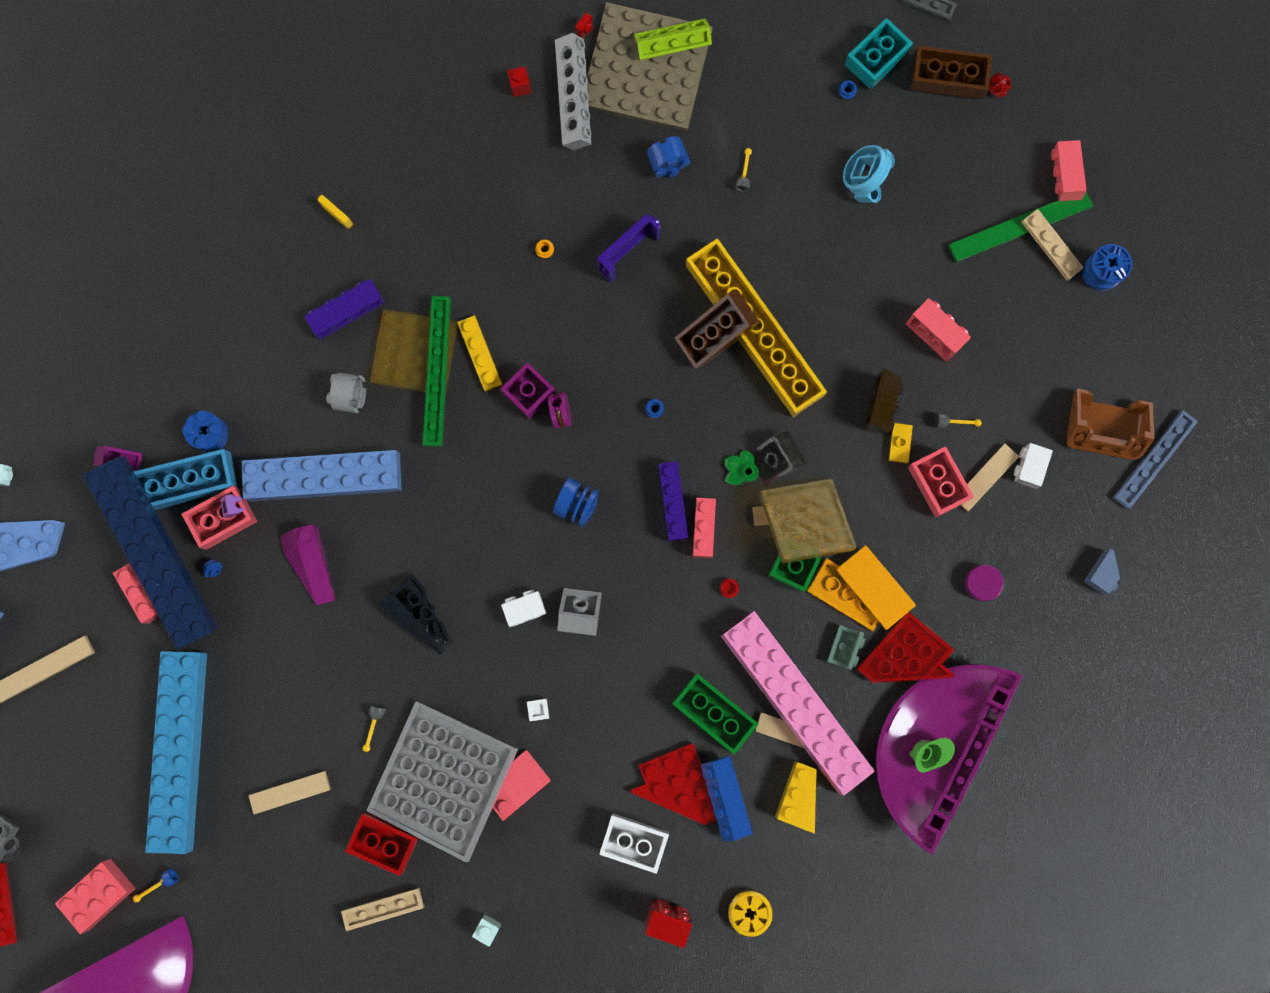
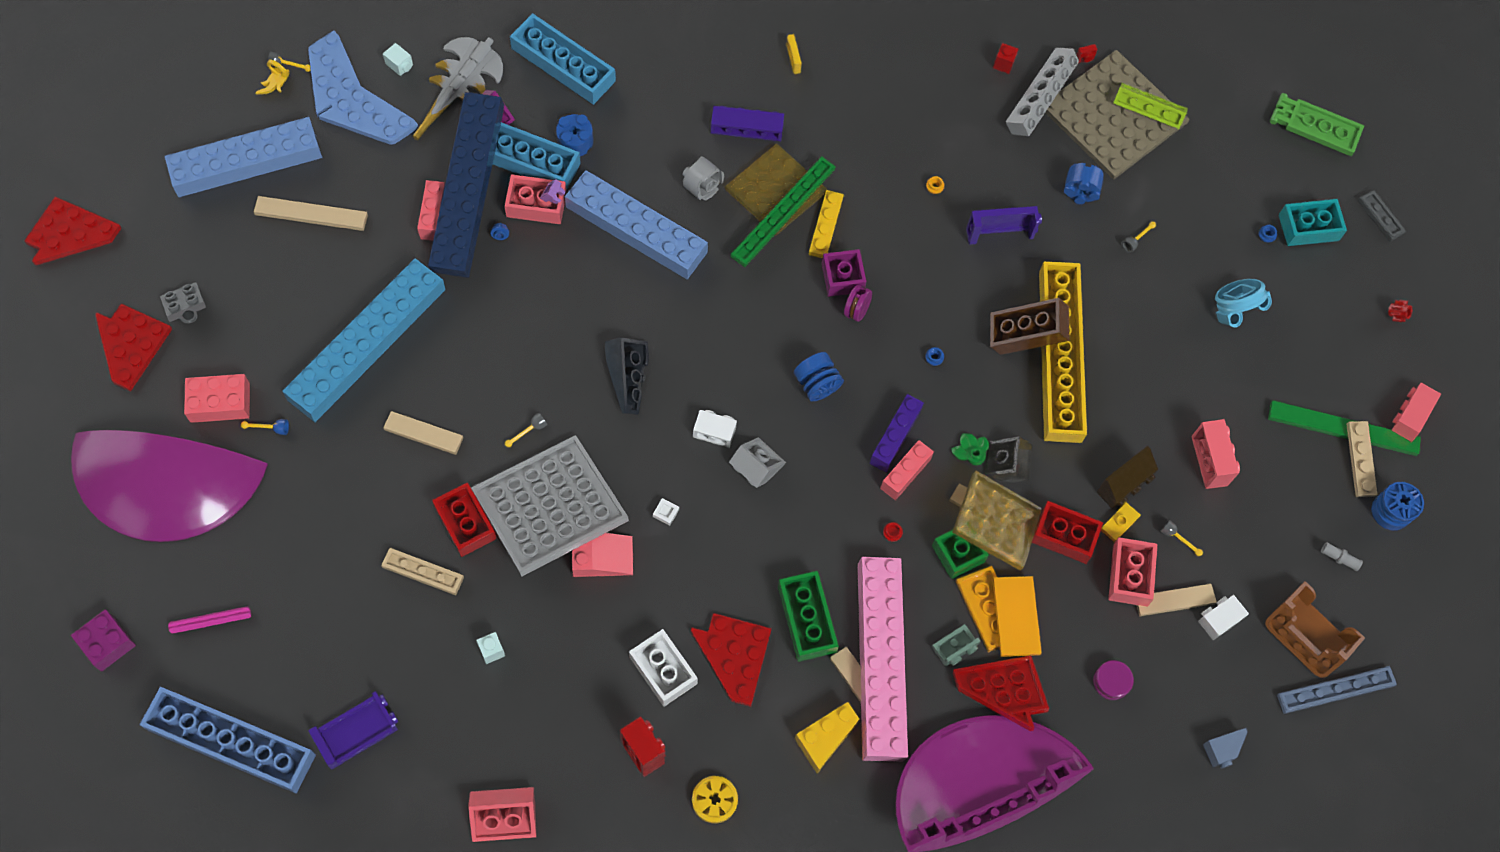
camera: 30 degrees right, 15 degrees down
(63, 423) = (474, 59): none -> light grey animal
(139, 367) = (563, 58): none -> dark azure brick
(307, 557) = (576, 276): magenta wedge -> none
(726, 799) = (765, 690): blue brick -> none
(867, 486) = (1067, 532): none -> red brick
(932, 754) = (969, 781): bright green piece -> none
(951, 72) = (1364, 274): reddish brown brick -> none
(1089, 343) = (1341, 556): none -> light grey pin

